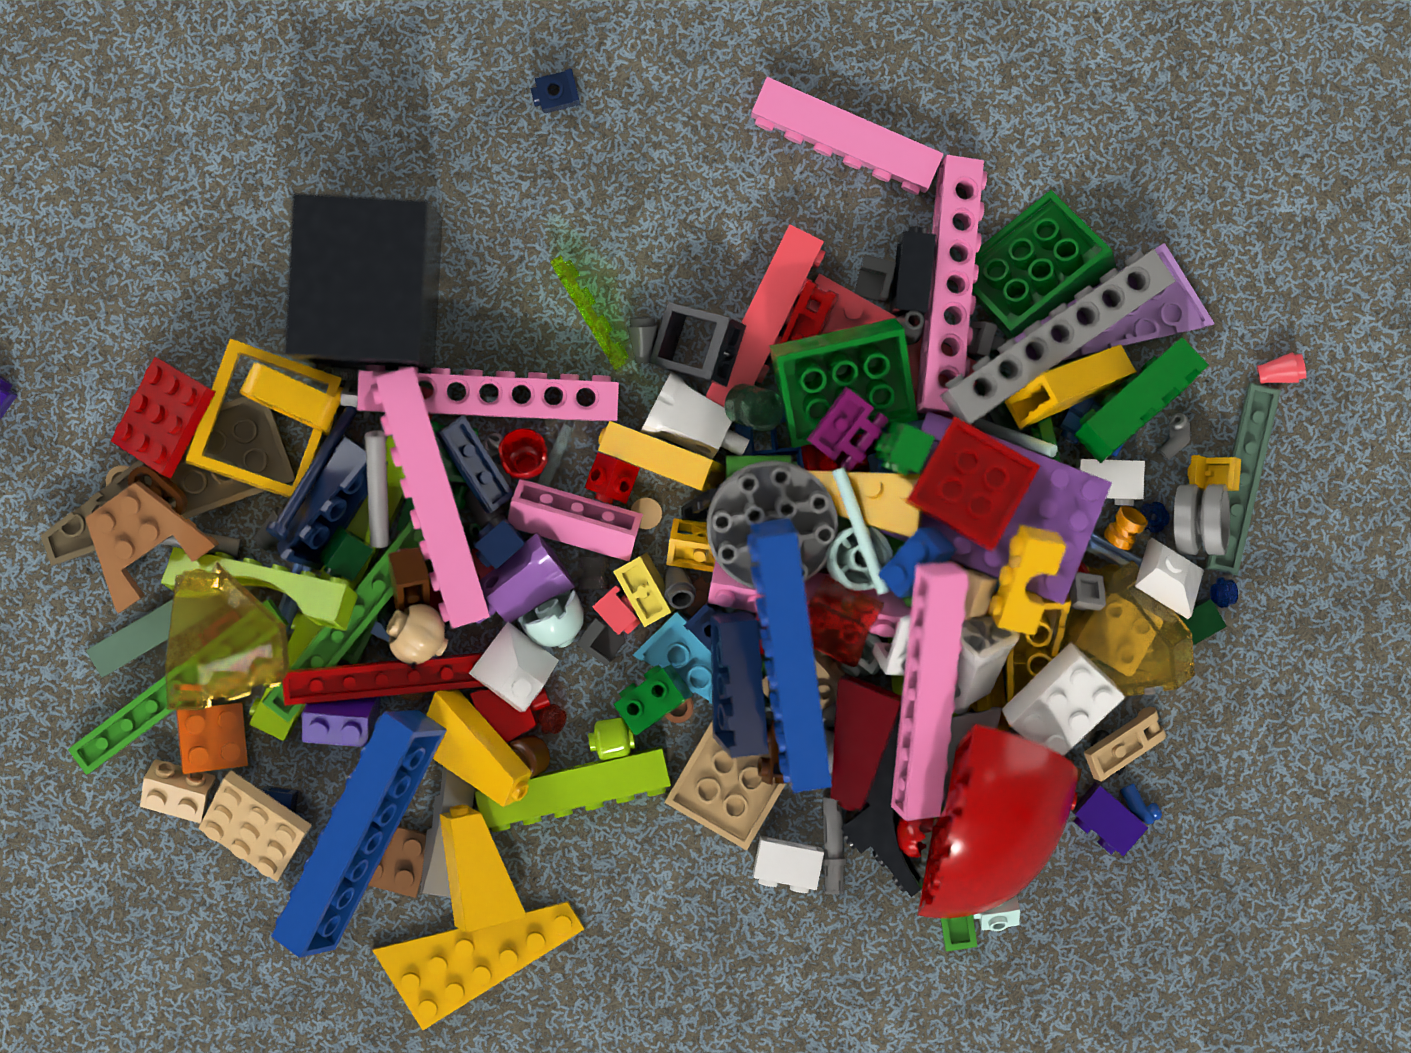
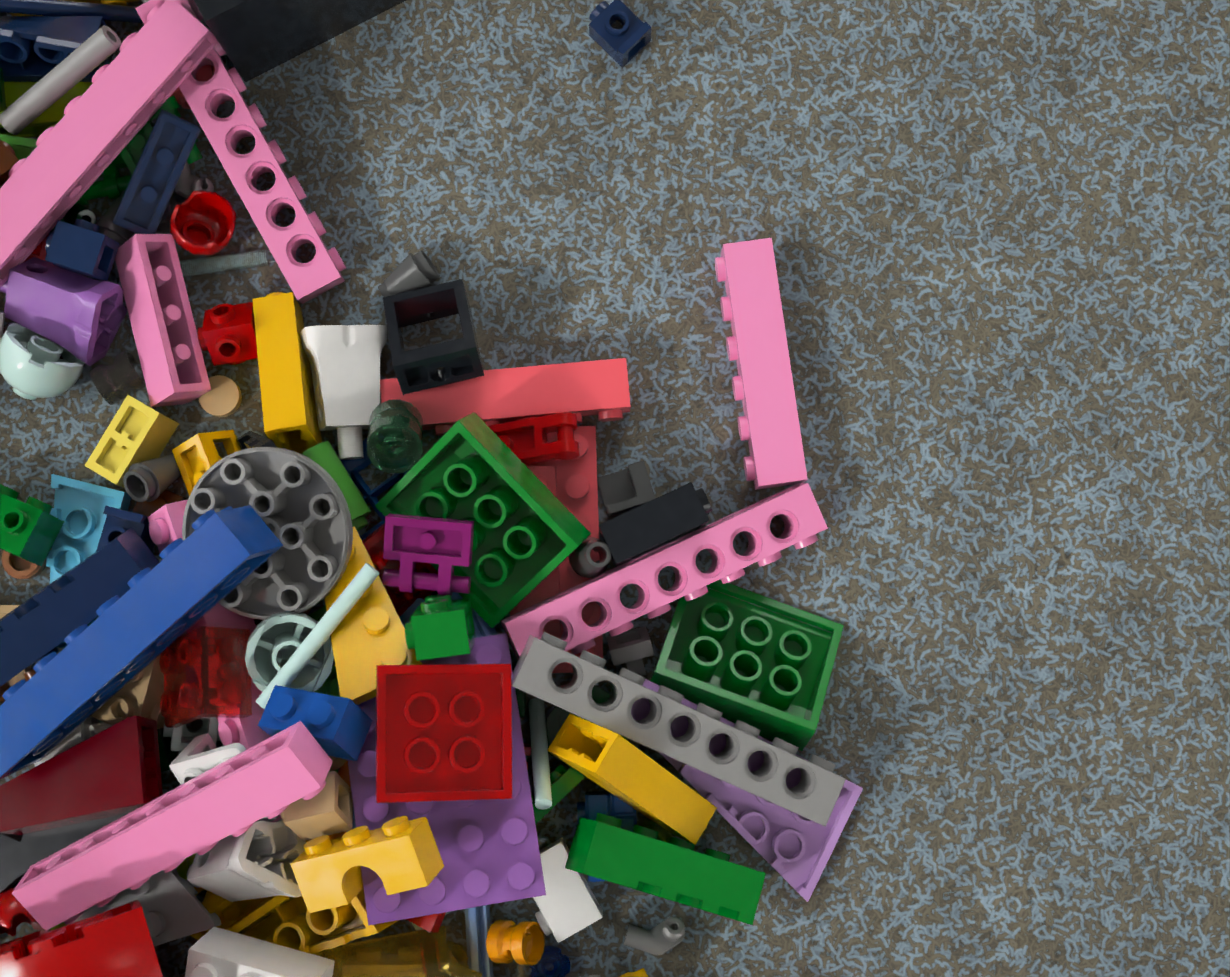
camera: 55 degrees right, 5 degrees down
(584, 300) = (397, 202): clear neon green wing -> none
(601, 641) = (45, 430): dark grey panel -> none
(617, 611) = (85, 425): coral brick -> none
(1087, 592) = (407, 944): light grey tile -> none

